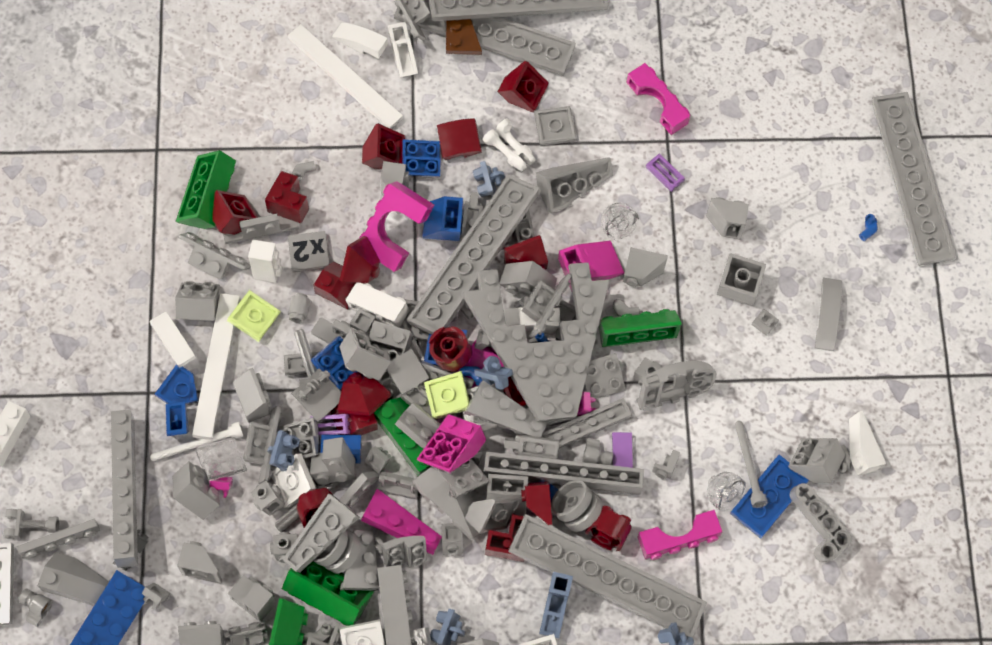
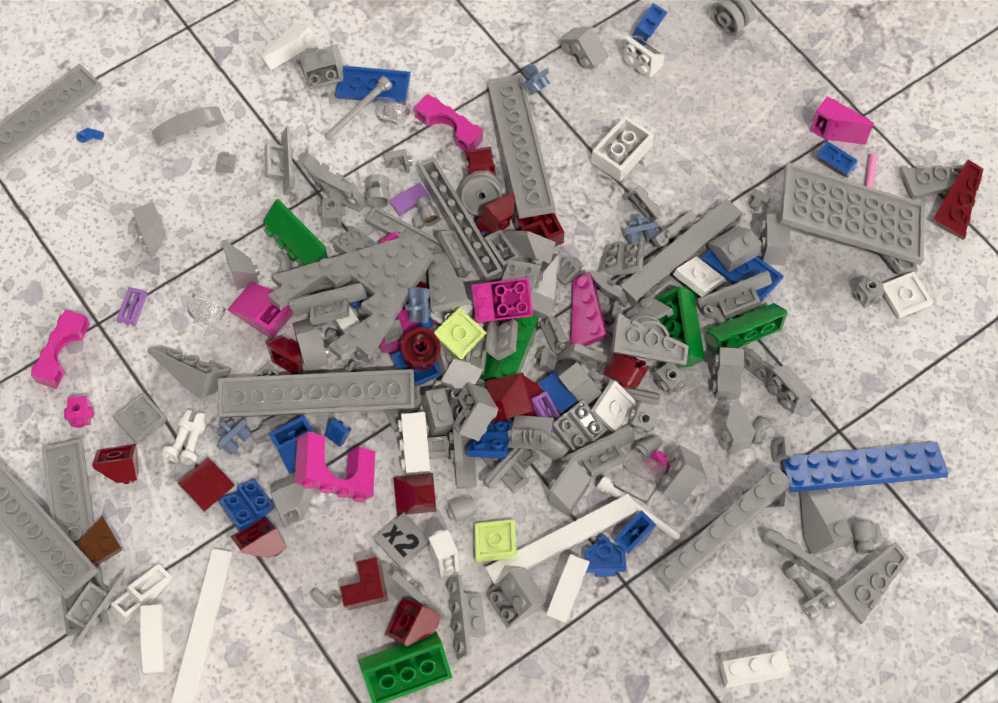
camera: 120 degrees left, 5 degrees down
(191, 592) = (762, 424): none -> light grey arm
(241, 486) = (649, 445): none -> light grey cone
(282, 450) = (602, 424): sand blue hips -> none
(295, 412) = (556, 449): none -> light grey brick
(360, 262) = (388, 478): dark red slope -> none
(428, 591) = (623, 259): none -> light grey slope
(436, 255) = (337, 432): none -> blue tile
(556, 604) = (566, 169): sand blue arch -> none
(587, 81) = (79, 411): none -> dark pink brick
(645, 425) = (377, 191): none -> light grey wheel
(737, 363) = (279, 161): none -> light grey bracket
(741, 279) = (201, 192): light grey brick -> none
(817, 520) = (375, 28): light grey beam -> none

